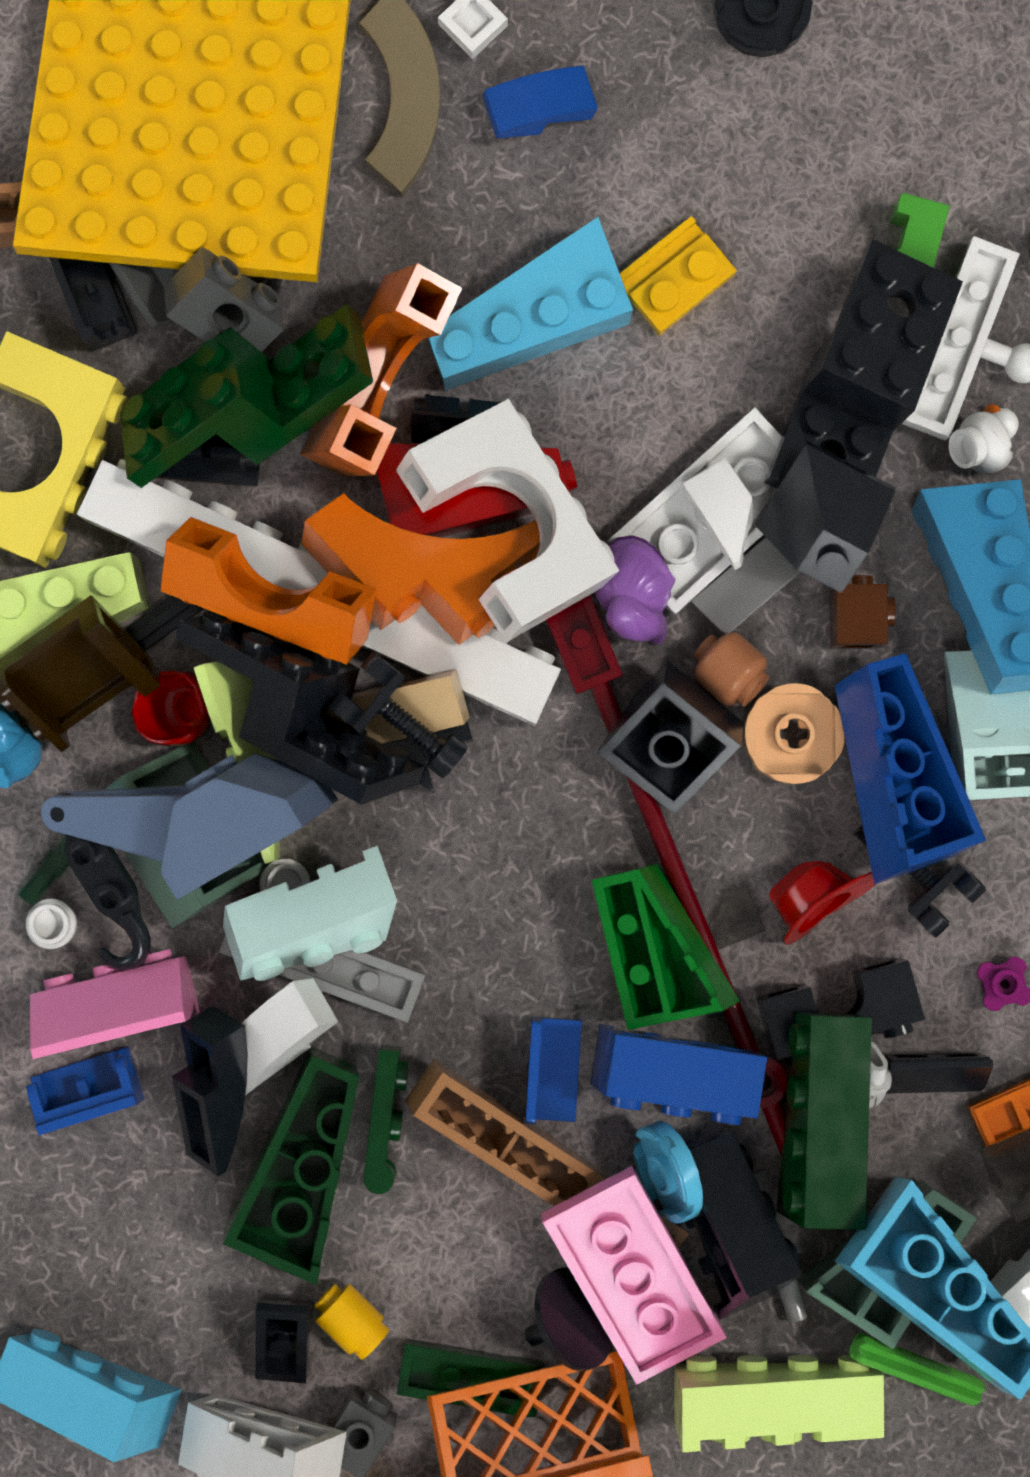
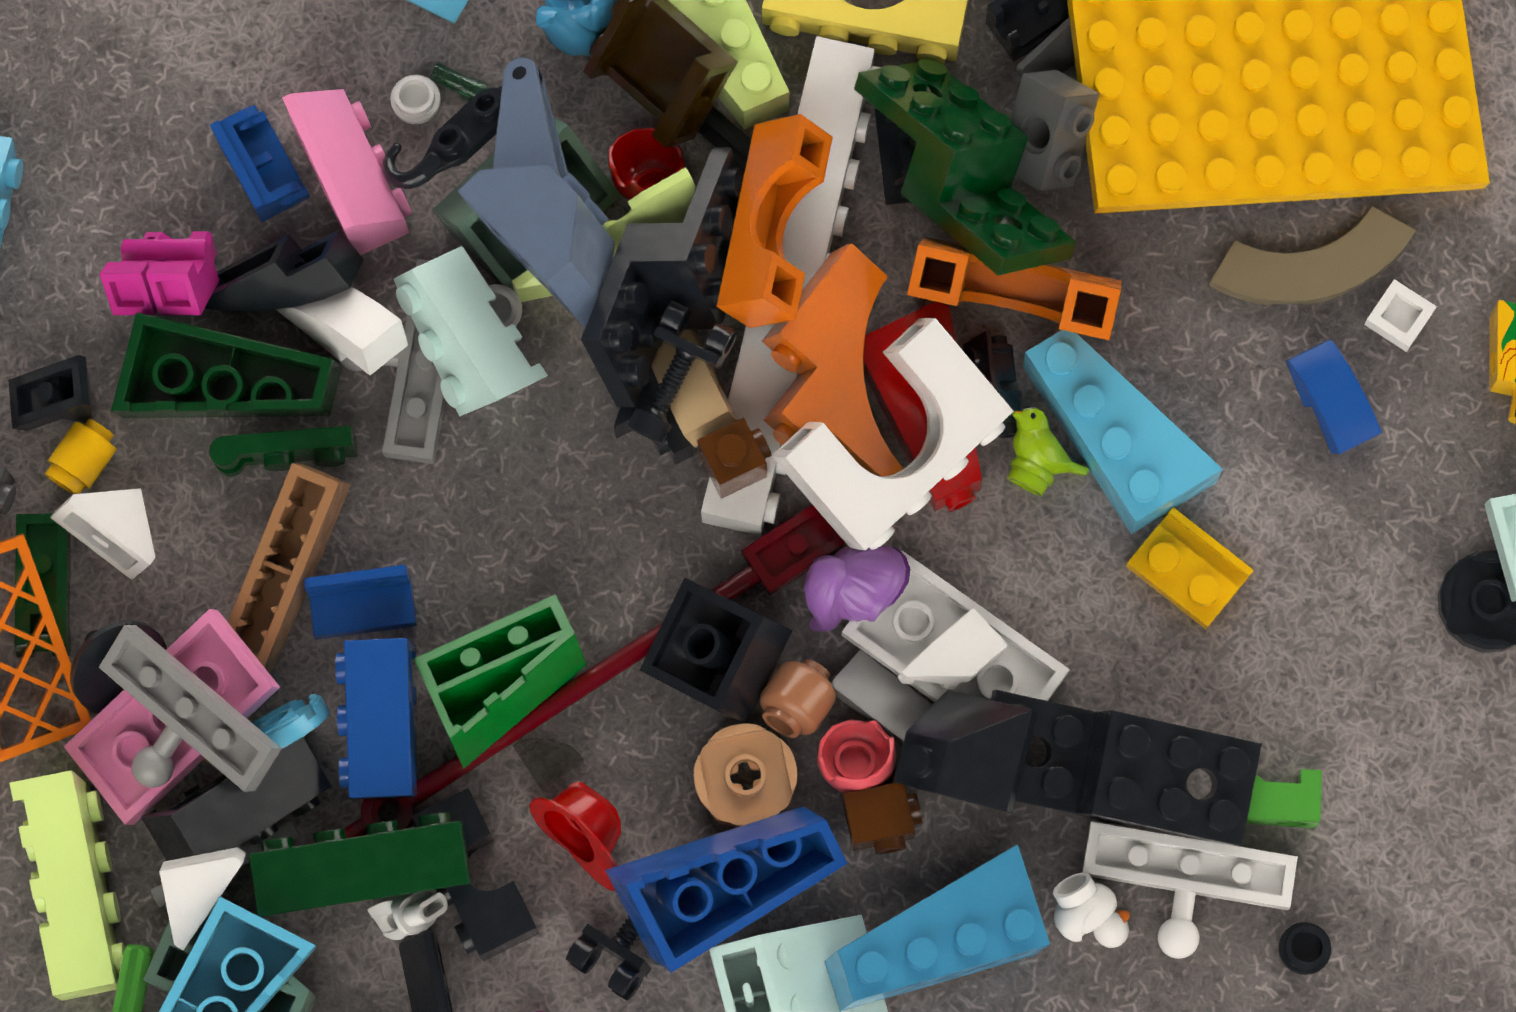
camera: 85 degrees right, 10 degrees down
(185, 1209) = (162, 275): none -> dark pink hips
(429, 1300) = (112, 526): none -> white slope
(495, 678) = (734, 457): none -> reddish brown brick
(538, 391) = (1038, 453): none -> lime animal
(646, 1261) = (189, 712): none -> light grey plate
(798, 624) = (856, 755): none -> coral hair
(824, 1286) = (194, 886): none -> white slope

